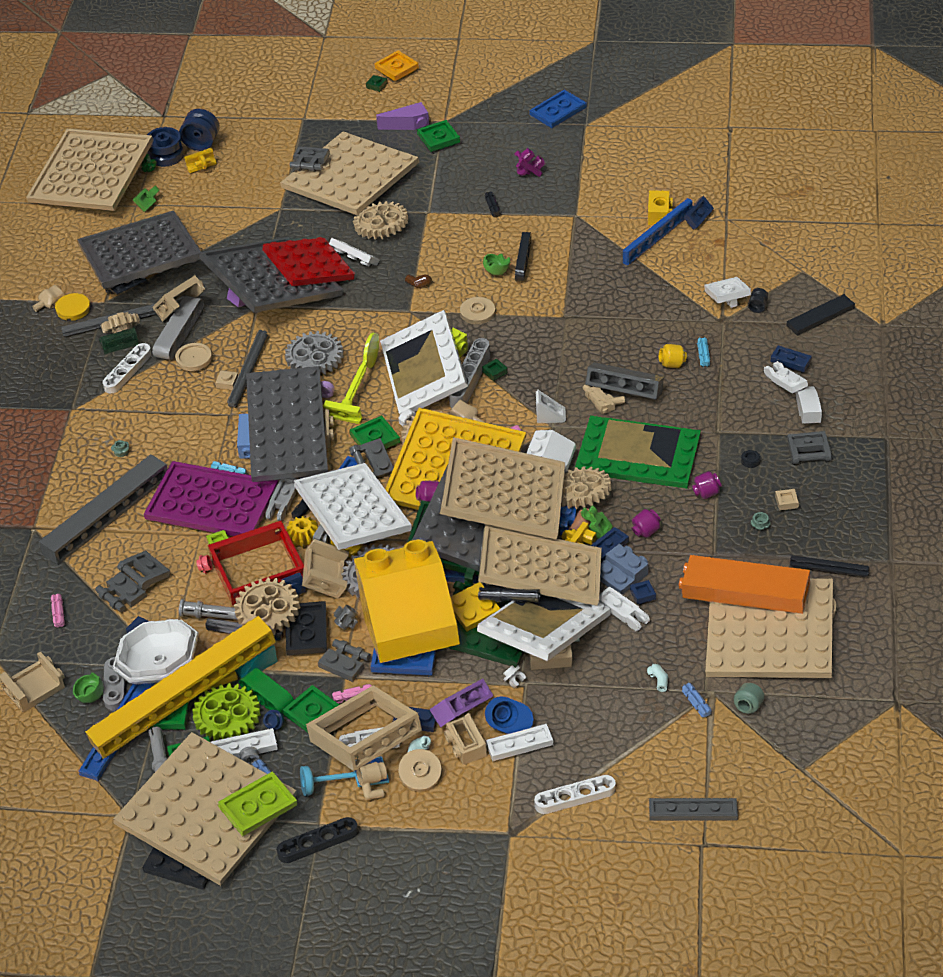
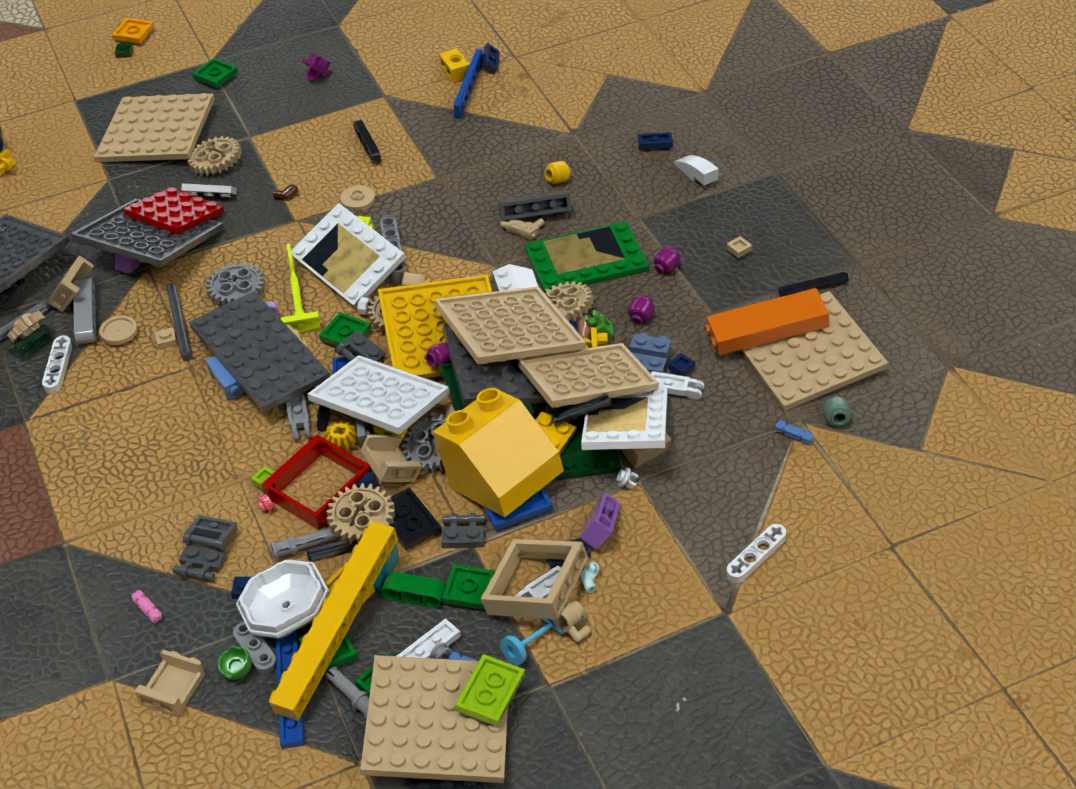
camera: 30 degrees left, 0 degrees up
(103, 509) = (127, 497): dark grey brick -> none
(120, 448) = (103, 436): sand green plate -> none
(210, 499) = (228, 445): magenta plate -> none
(226, 467) = (226, 413): medium azure axle -> none
(226, 712) = (388, 624): lime gear -> none
(273, 719) = (438, 611): dark blue plate -> none
(314, 156) = (111, 126): dark grey plate -> none
(318, 842) = (563, 700): black beam -> none
(339, 696) = (493, 556): bright pink axle -> none
(346, 617) = (439, 492): dark grey gear -> none
(404, 118) = (174, 68): medium lavender slope -> none
(418, 779) = (607, 594): tan piece -> none
(470, 752) = (624, 556): tan window -> none
(492, 204) = (305, 110): black axle -> none
(494, 369) = (412, 238): dark green plate -> none
(496, 264) = (348, 155): bright green hair -> none
(508, 715) = (652, 512): blue piece -> none
(519, 742) = (676, 531): white plate -> none
(548, 409) = (484, 253): white slope -> none
(558, 108) = (305, 20): blue tile -> none
(611, 540) = (623, 334): dark blue plate -> none
(661, 675) = (750, 425): light aqua arm -> none
(692, 809) = (861, 521): dark grey tile -> none
(703, 352) = (581, 163): medium azure axle -> none
(727, 291) = (563, 107): white hinge -> none
(750, 459) = (683, 228): black tile -> none
(758, 300) = (593, 106): black wheel -> none
(760, 521) = (731, 271): sand green plate -> none
(785, 377) = (663, 156): white hinge -> none
(809, 442) = (721, 197): dark grey plate -> none
(820, 314) = (650, 100): black tile -> none

